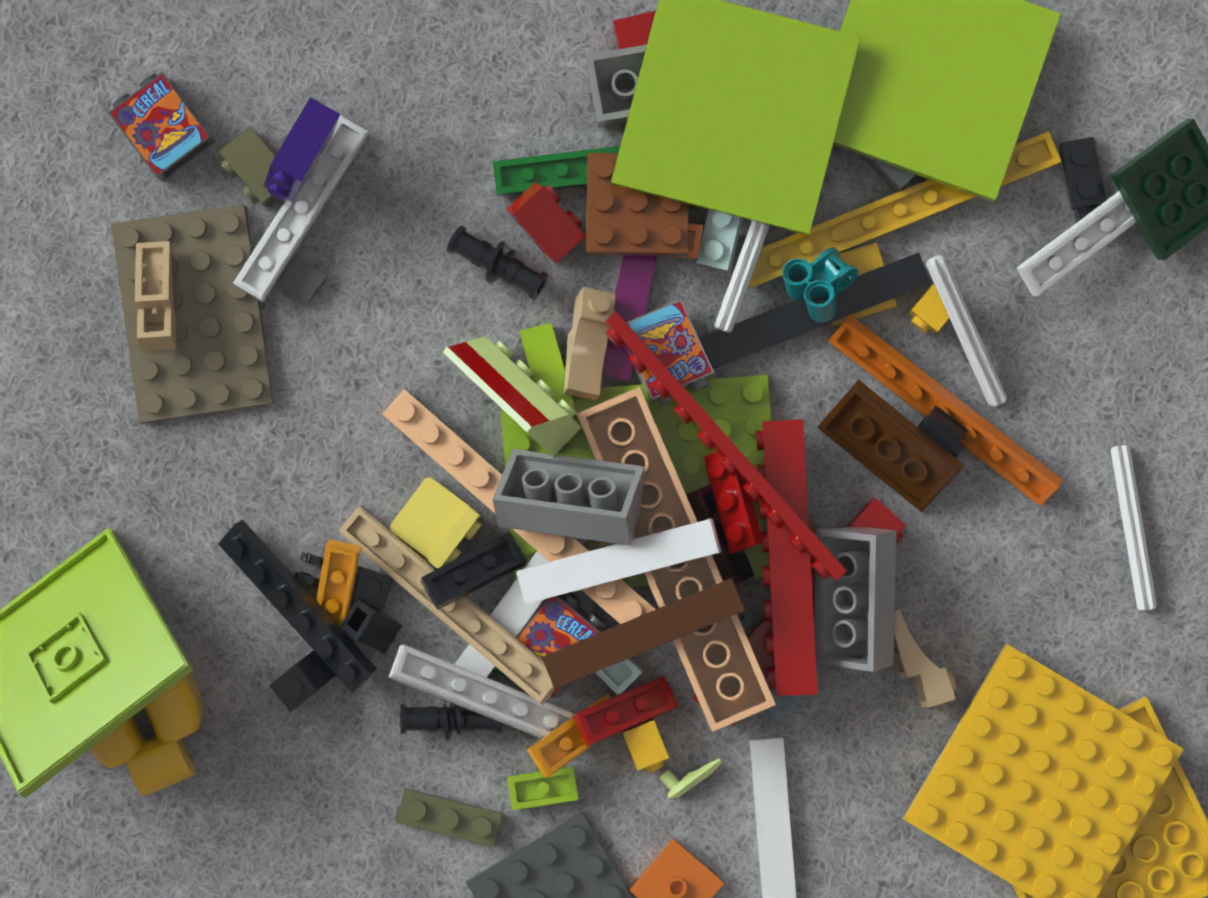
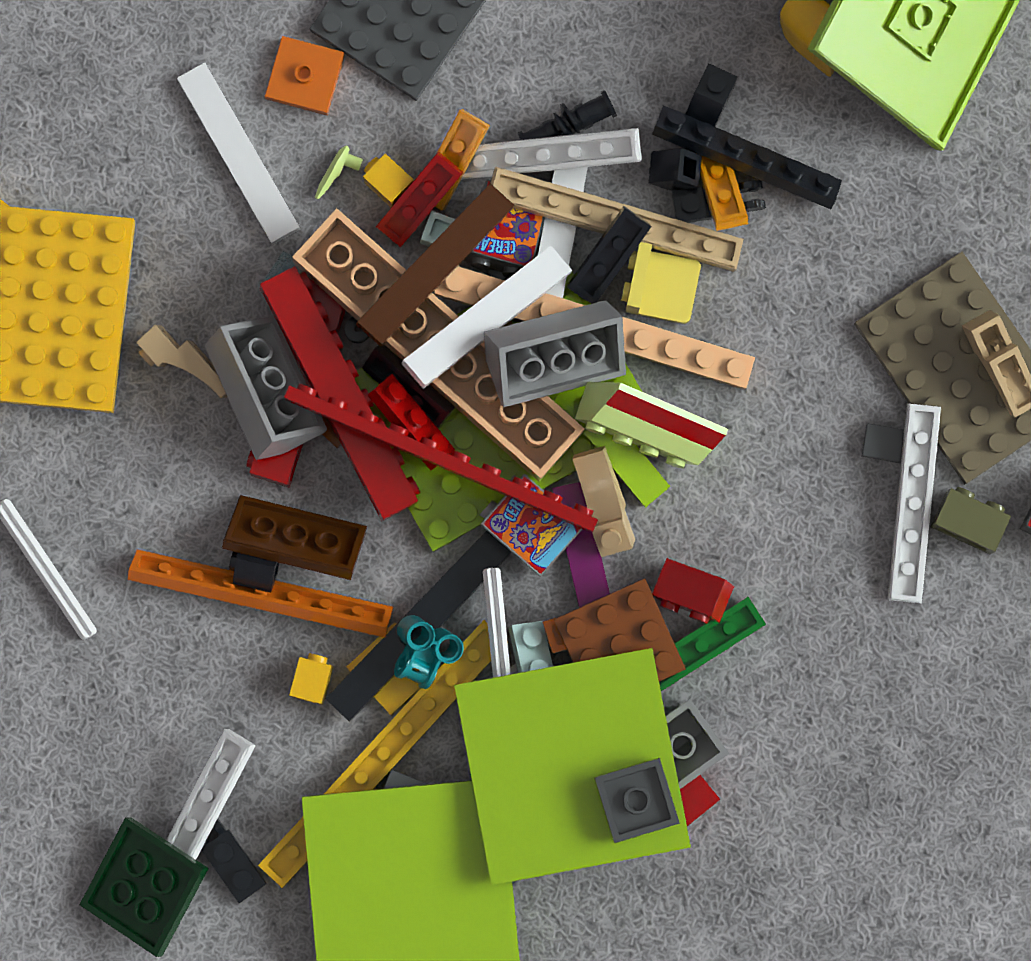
camera: 155 degrees right, 5 degrees down
(301, 150) = (938, 545): dark purple brick -> none
(449, 817) = (528, 42): olive plate -> none
(497, 262) = (718, 536): black piece -> none
(534, 790) = (469, 95): lime plate -> none
(692, 47) = (636, 800): none -> dark grey plate
(966, 330) = (274, 669): white axle -> none

